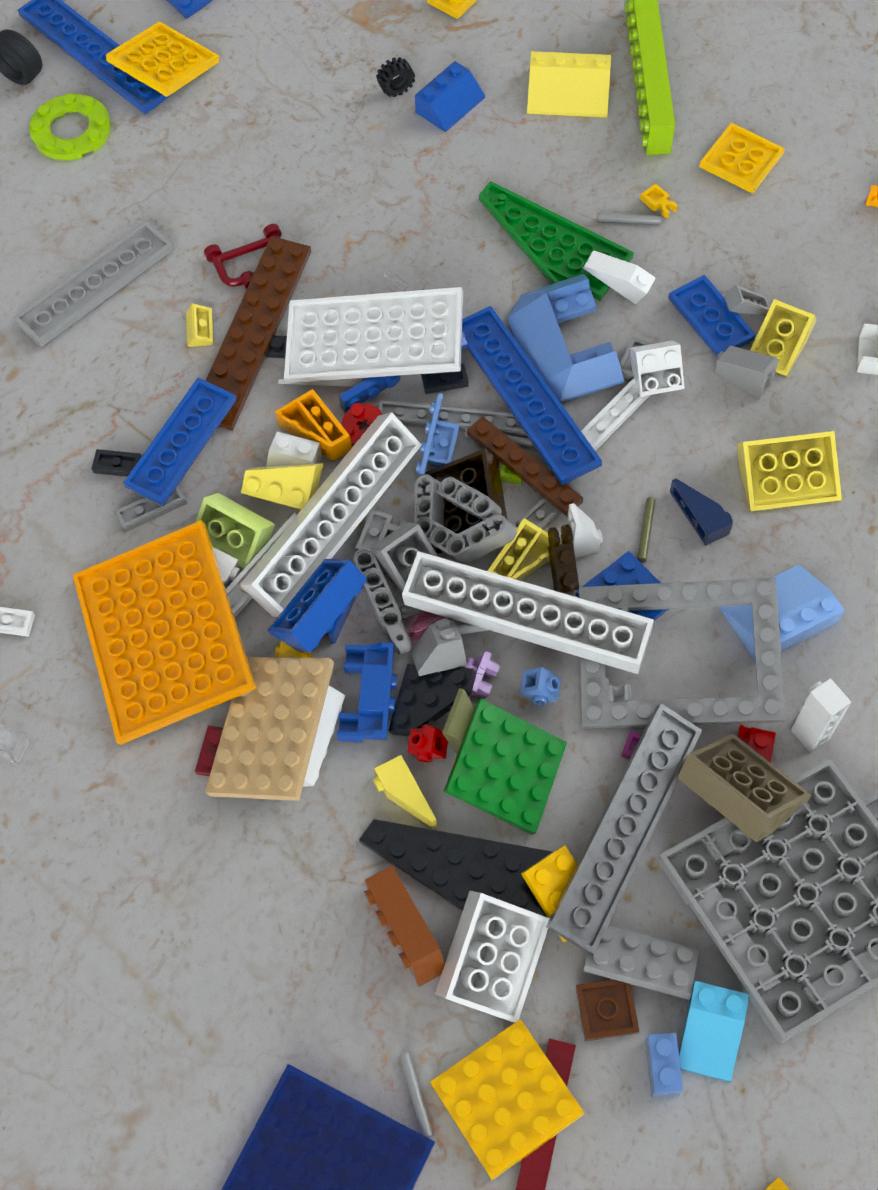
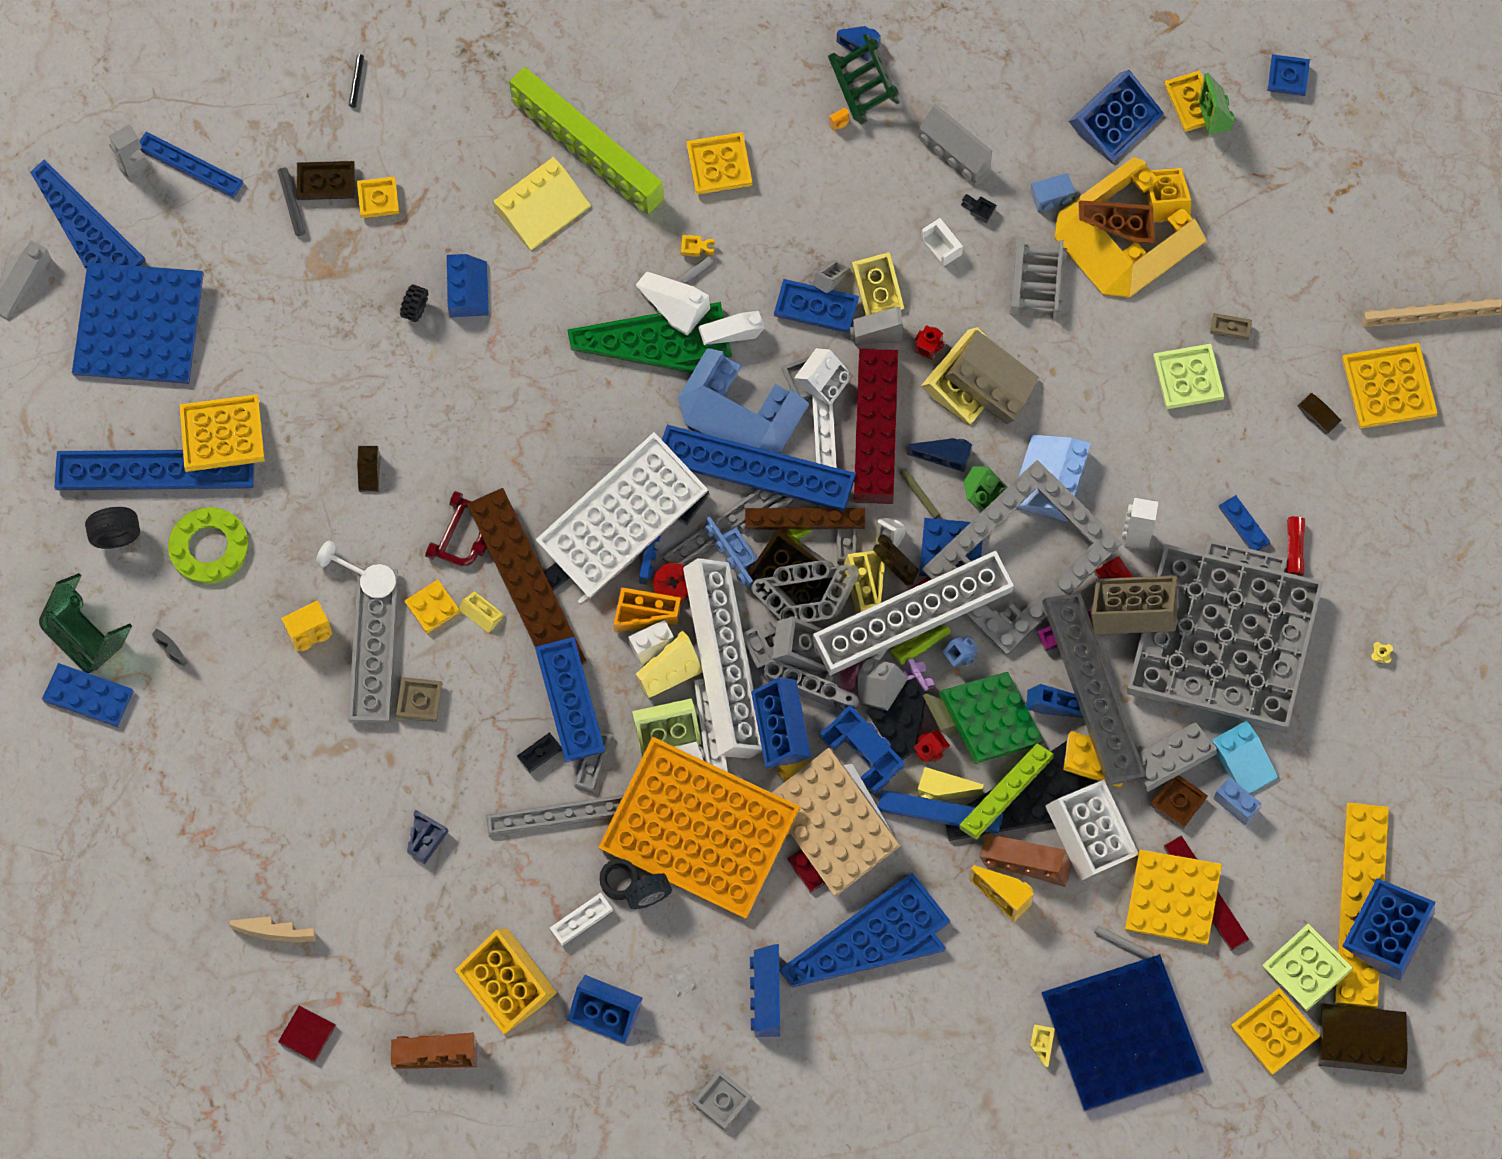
camera: 45 degrees left, 5 degrees up
(50, 602) = (607, 868): none -> black tyre
(60, 226) = (307, 626): none -> yellow brick
(61, 822) = (766, 991): none -> blue slope
(63, 642) = (648, 891): none -> black wheel
(69, 518) = (552, 815): none -> light grey tile
(79, 348) = (419, 699): none -> dark tan plate
(148, 238) = (375, 581): none -> white piece
(168, 293) = (432, 606): none -> yellow plate
(214, 868) = (885, 932): none -> blue wing
(236, 161) = (368, 468): none -> dark brown slope
(240, 1114) = (1042, 1042): none -> light yellow slope
(352, 945) = (1004, 891): none -> yellow slope
(375, 809) = (929, 810): none -> blue tile
(449, 844) = (1006, 791): none -> lime plate
(513, 648) = (919, 643): none -> lime plate
(577, 803) = (1052, 701): none -> blue slope
(596, 224) = (676, 301): none -> white wedge
(662, 444) = (876, 426): none -> dark red brick
(704, 564) = (983, 487): none -> bright green slope
(780, 415) = (929, 342): none -> red brick
(807, 483) = (992, 377): none -> dark tan slope

